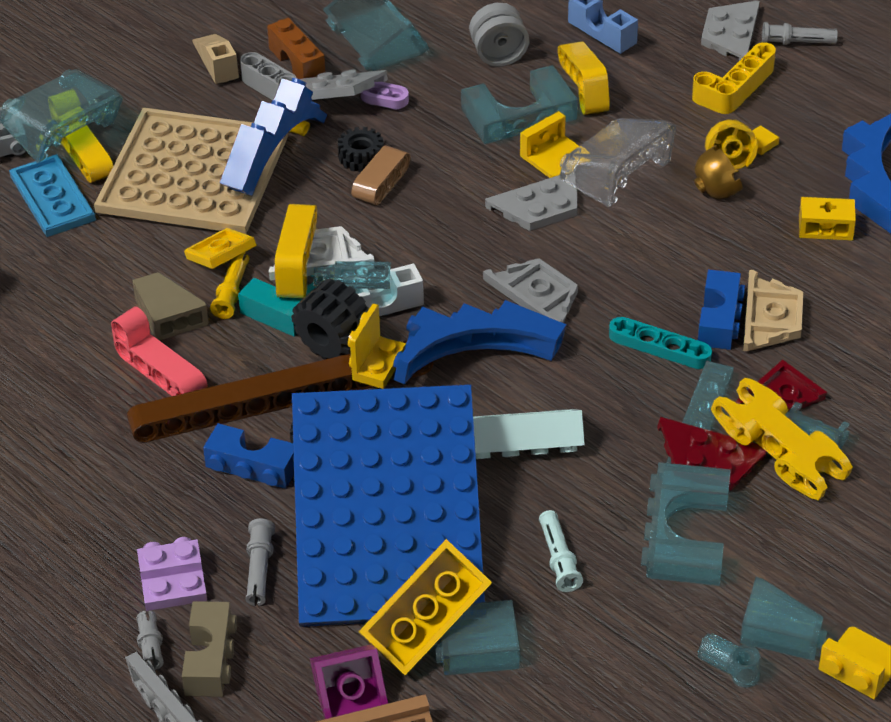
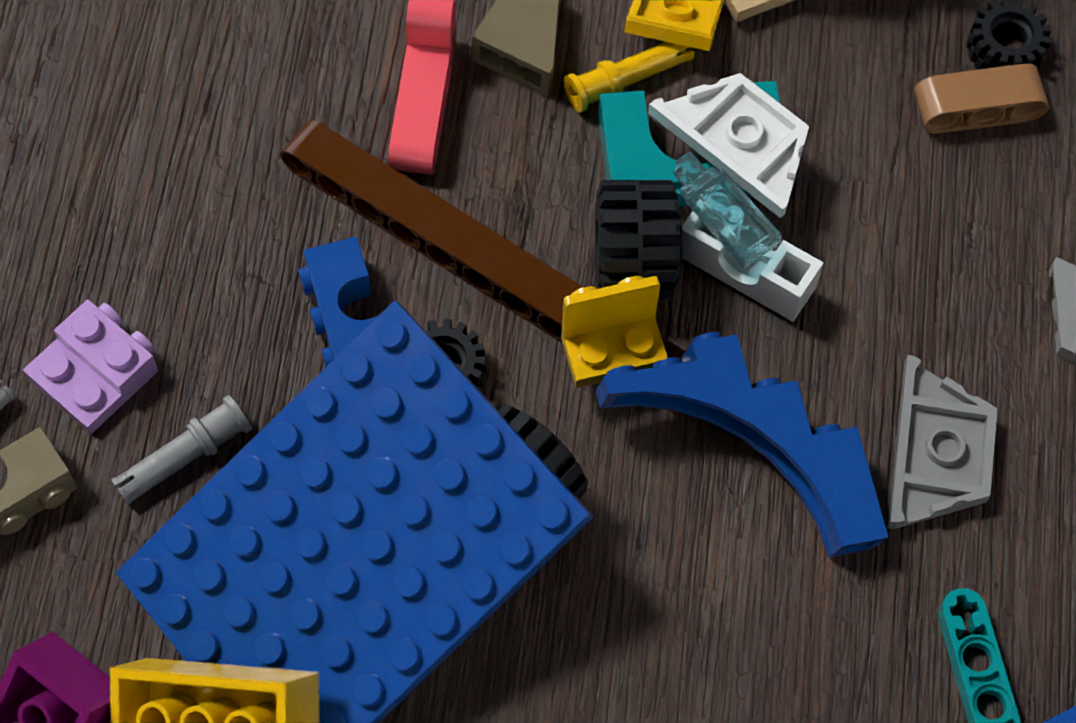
camera: 50 degrees right, 20 degrees up
(294, 251) = (706, 100): yellow beam -> none
(528, 431) = (654, 615): light aqua slope -> none

